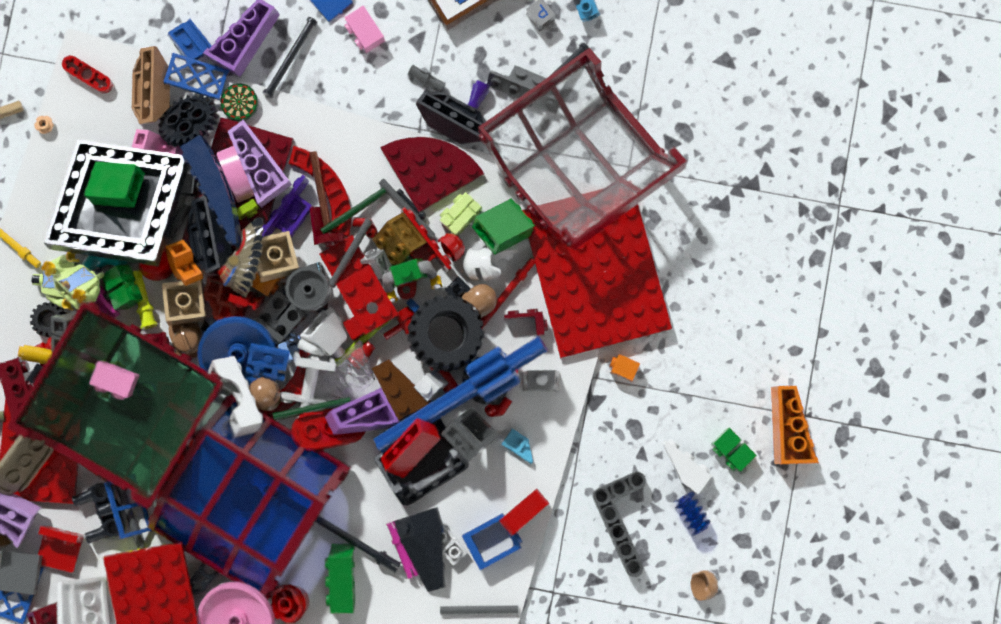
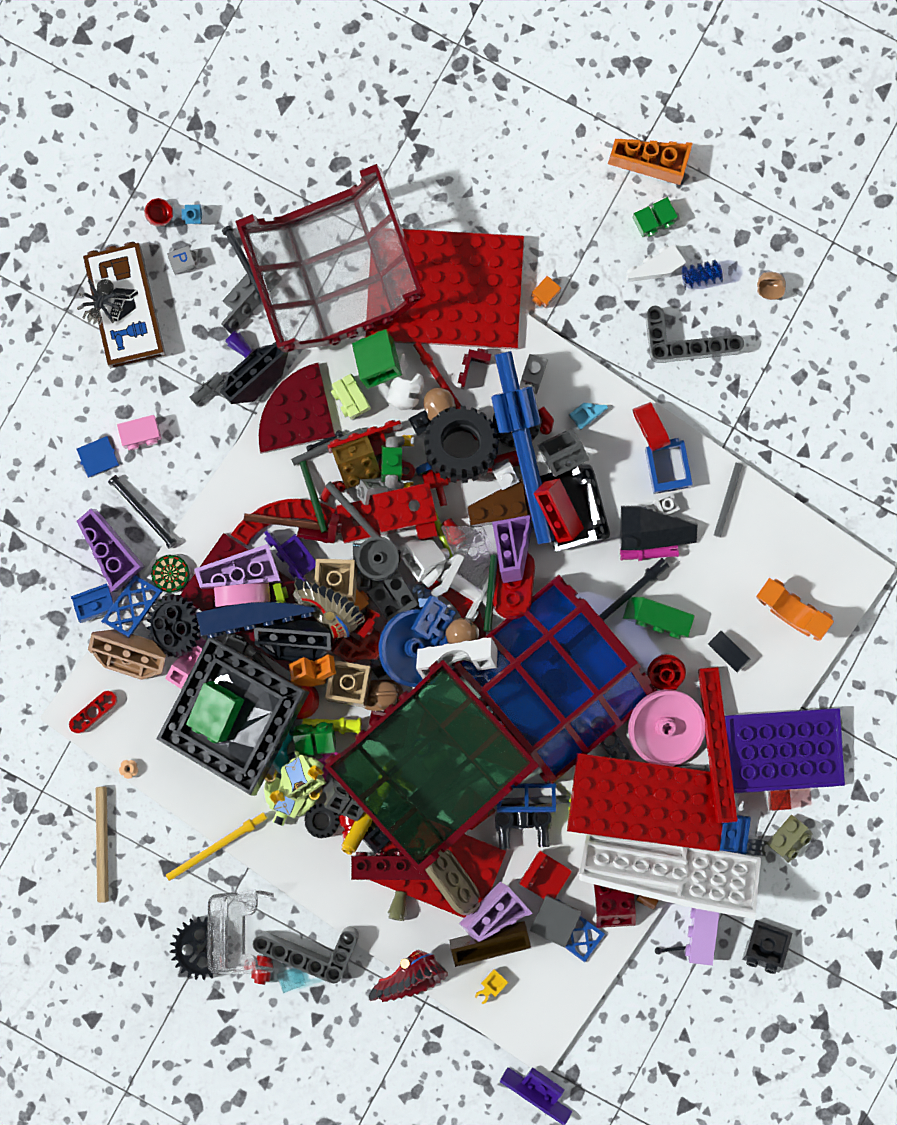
camera: 70 degrees left, 0 degrees up
(114, 379) = (404, 767): bright pink brick -> none
(452, 246) = (379, 414): red hair -> none

